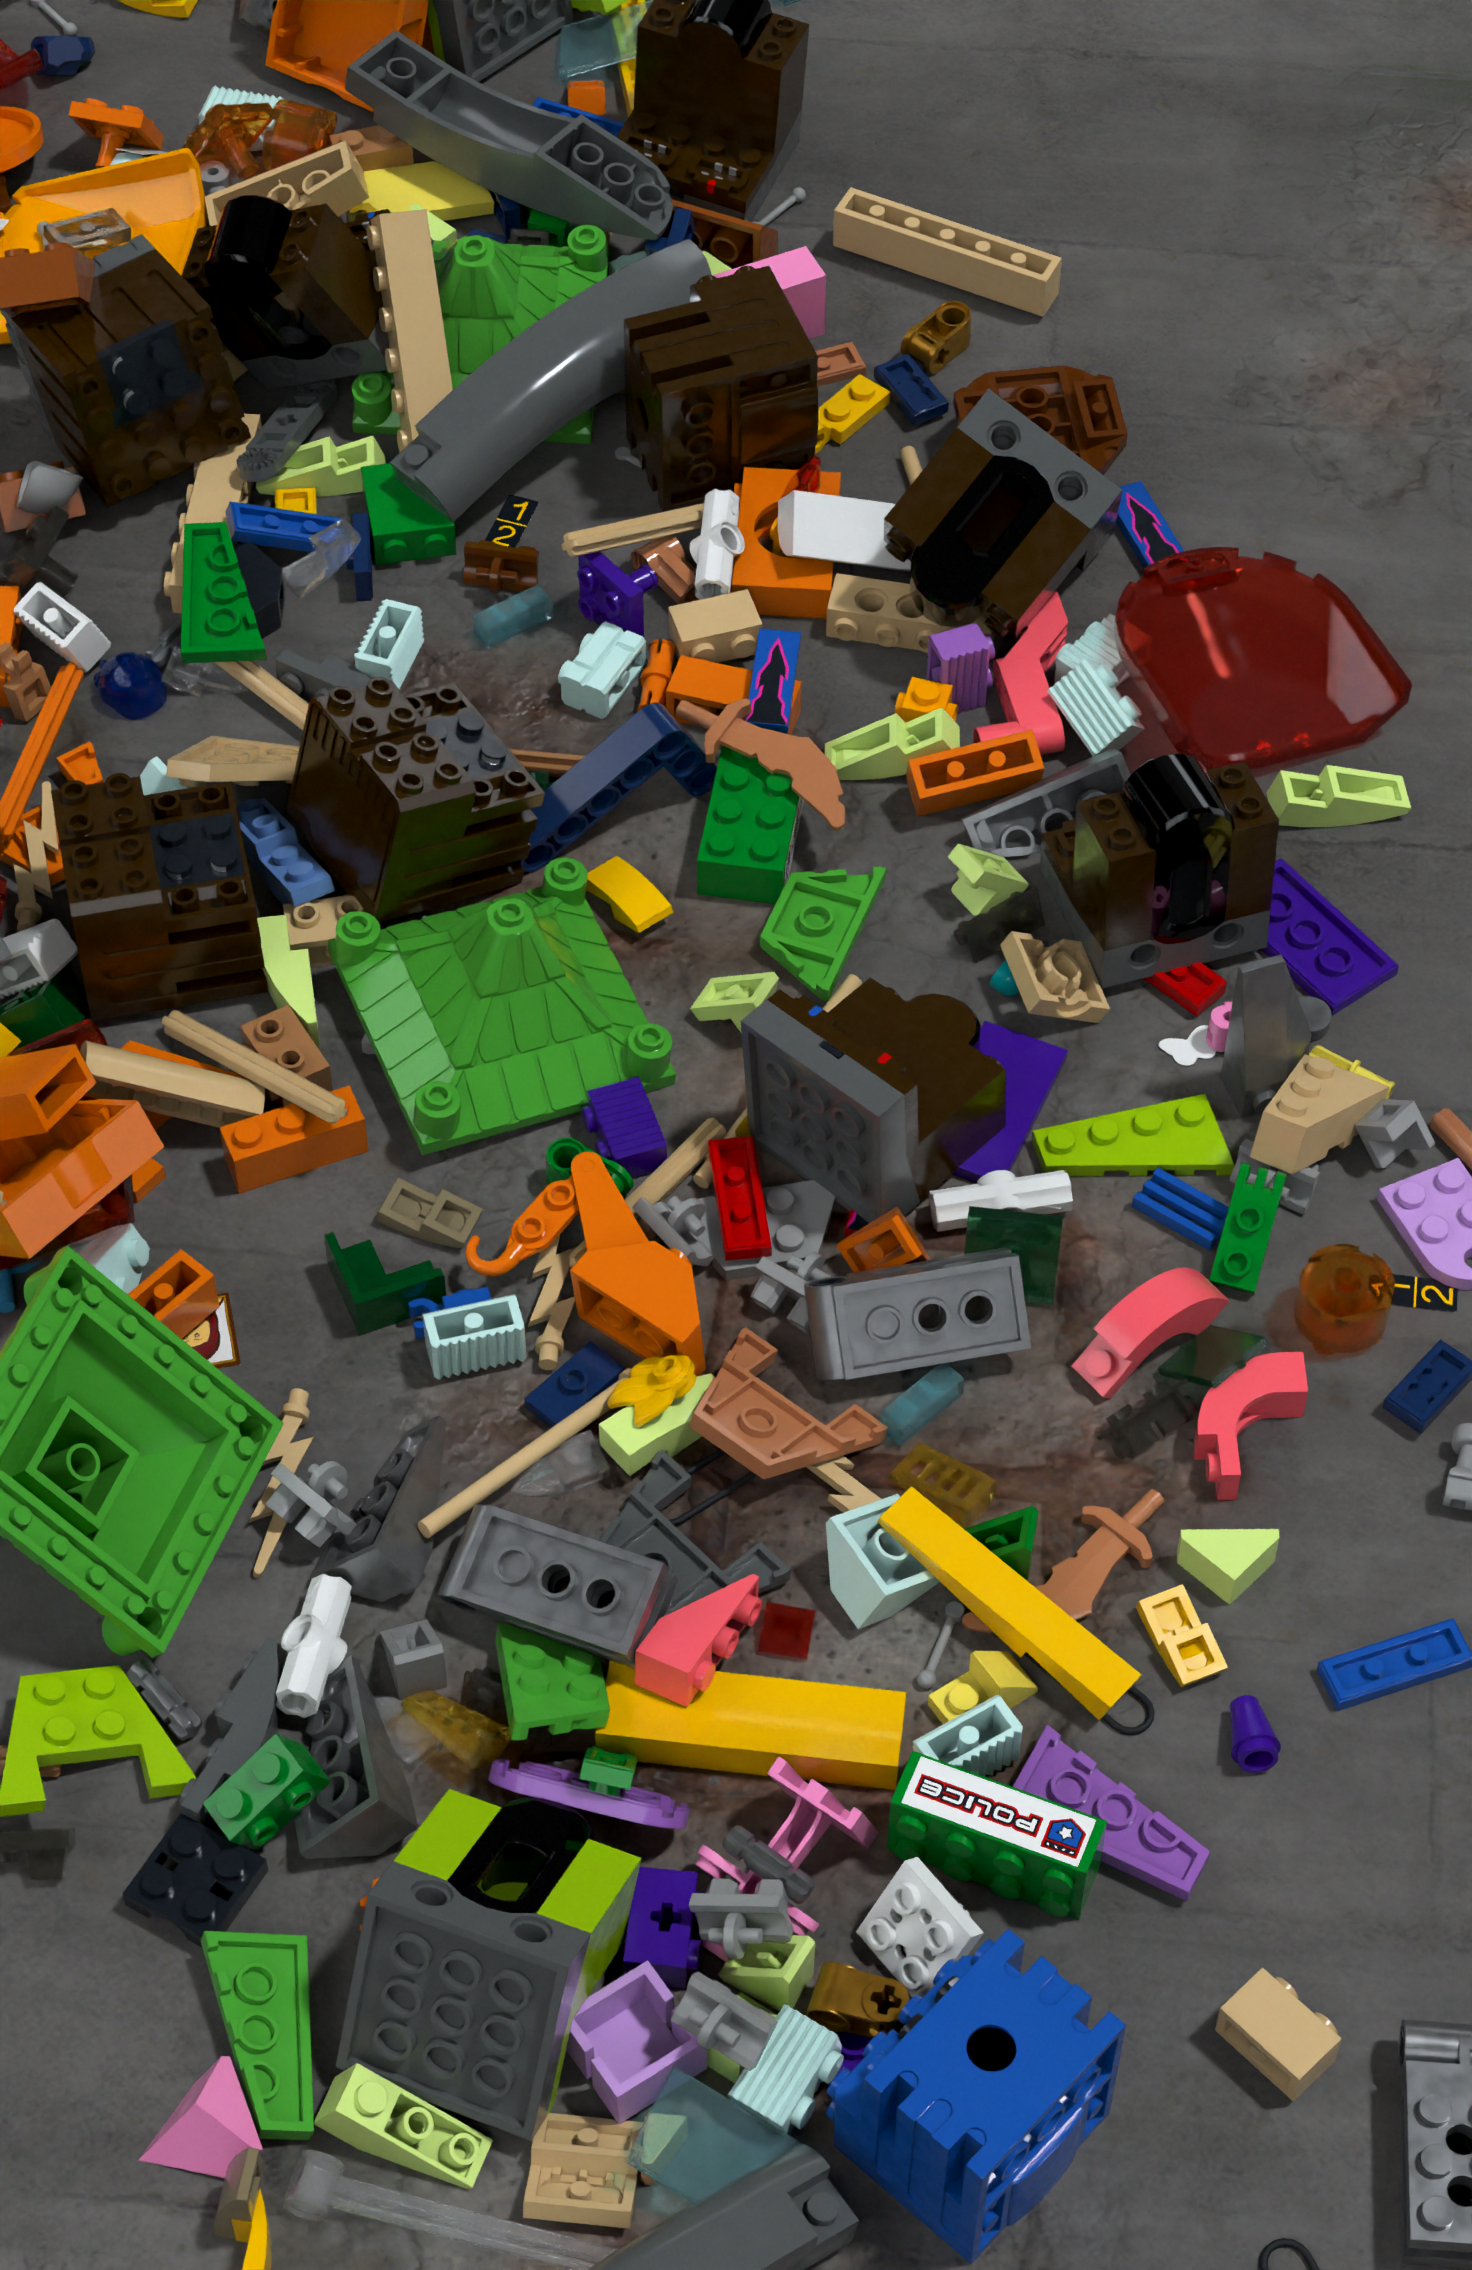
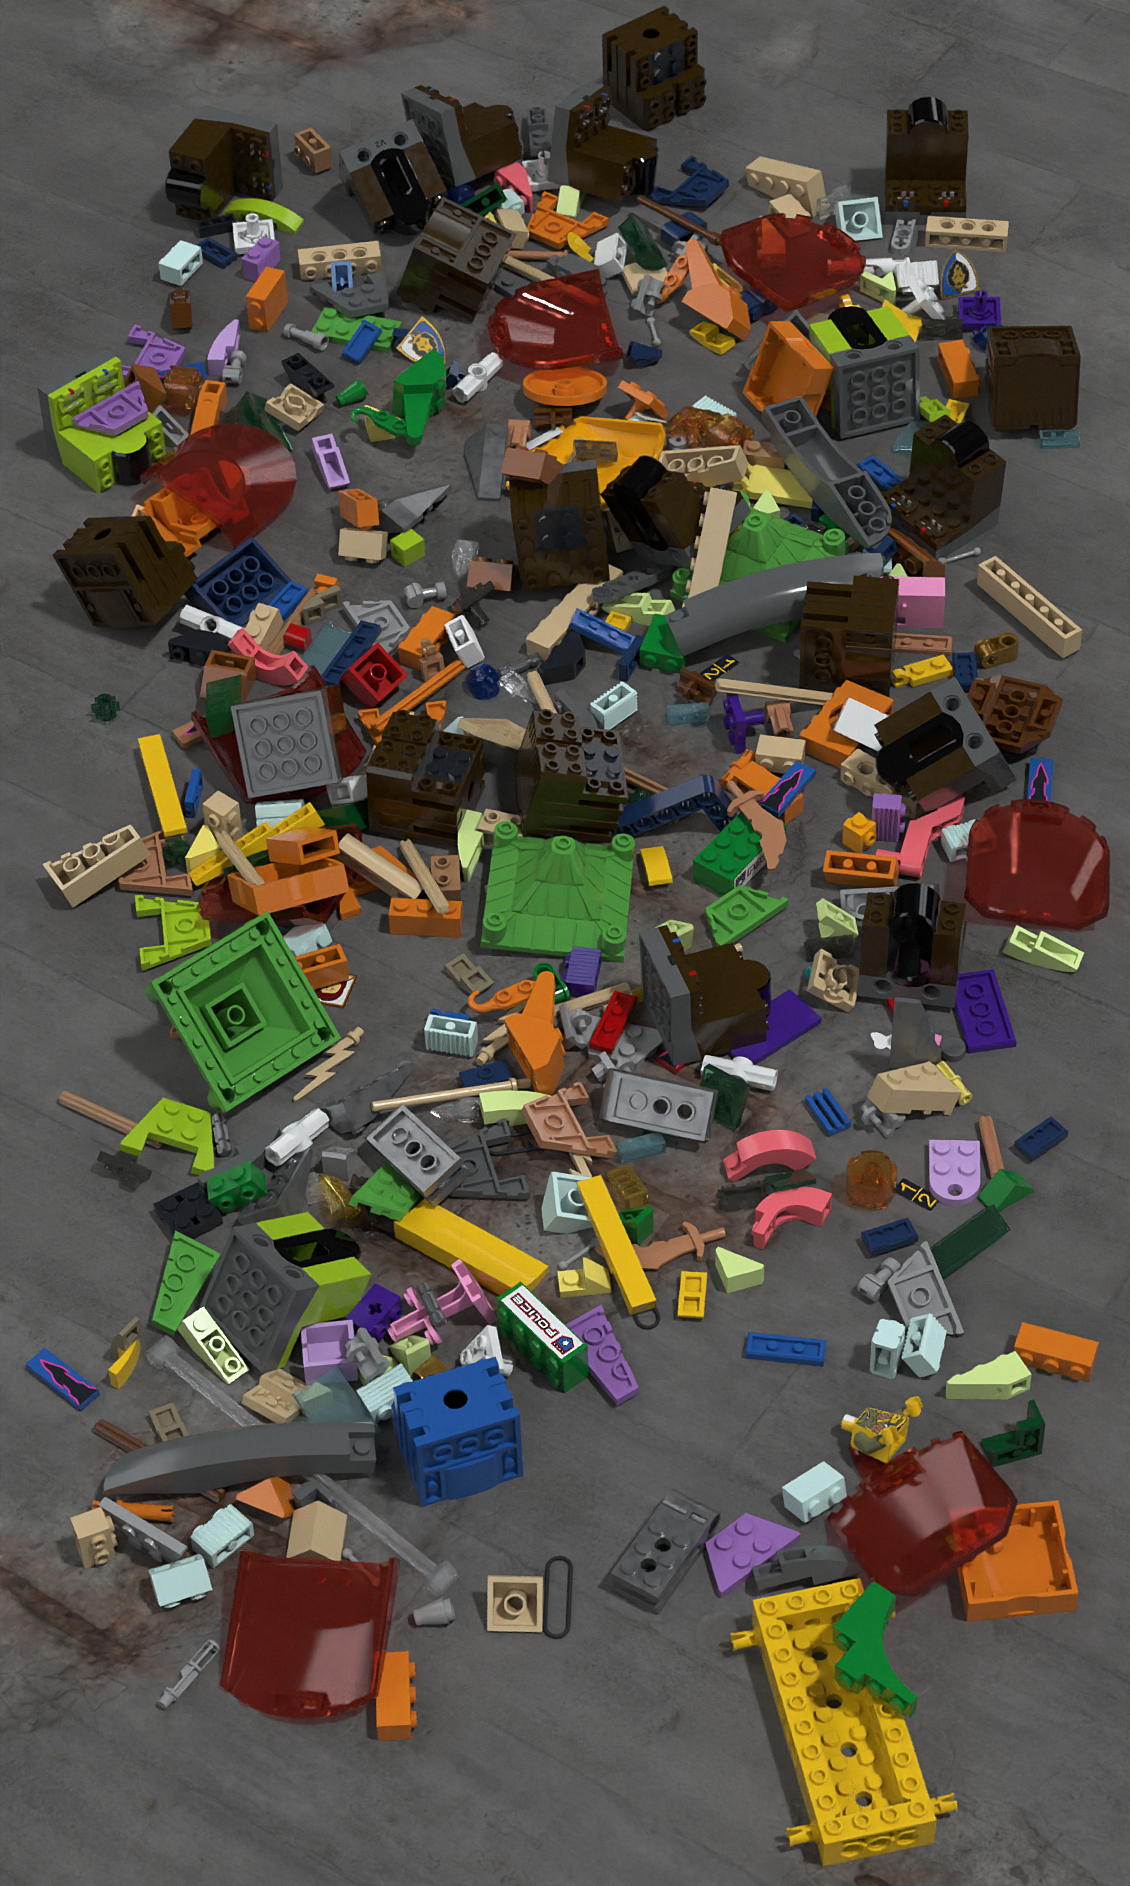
camera: 30 degrees right, 5 degrees down
(46, 487) = (491, 569): light grey helmet -> none
(206, 2126) = (133, 1304): bright pink slope -> none
(215, 601) = (541, 653): green wing -> none
(278, 856) = (501, 783): medium blue slope -> none
(294, 1493) = (332, 1076): light grey hips -> none
(331, 550) = (616, 648): clear slope -> none
(373, 1296) = (420, 997): dark green panel -> none
(566, 1788) = (375, 1246): medium lavender tile -> none
(587, 96) = (899, 463): orange slope -> none
(602, 669) = (713, 754): light aqua brick -> none
(608, 1770) = (386, 1237): green hinge -> none
(654, 1386) = (521, 1085): yellow plate -> none
(690, 1642) = (466, 1202): coral slope -> none
(717, 544) = (805, 712): white piece -> none
(740, 1918) = (404, 1320): light grey hips -> none
(787, 1630) = (514, 1219): clear red slope -> none
(806, 478) = (870, 697): clear red slope -> none
(883, 1244) = (668, 1066): orange slope -> none
(888, 744) = (818, 841): yellowish green slope -> none
(977, 1739) = (560, 1296): light aqua brick -> none
(1096, 707) = (943, 861): light aqua brick -> none
(1164, 1135) = (839, 1075): lime wing -> none
(1247, 1231) = (847, 1130): green hinge -> none
(1252, 1736) = (693, 1351): dark purple cone -> none
(1278, 2033) = (615, 1471): tan brick -> none
(1392, 1129) = (951, 1115): light grey panel -> none

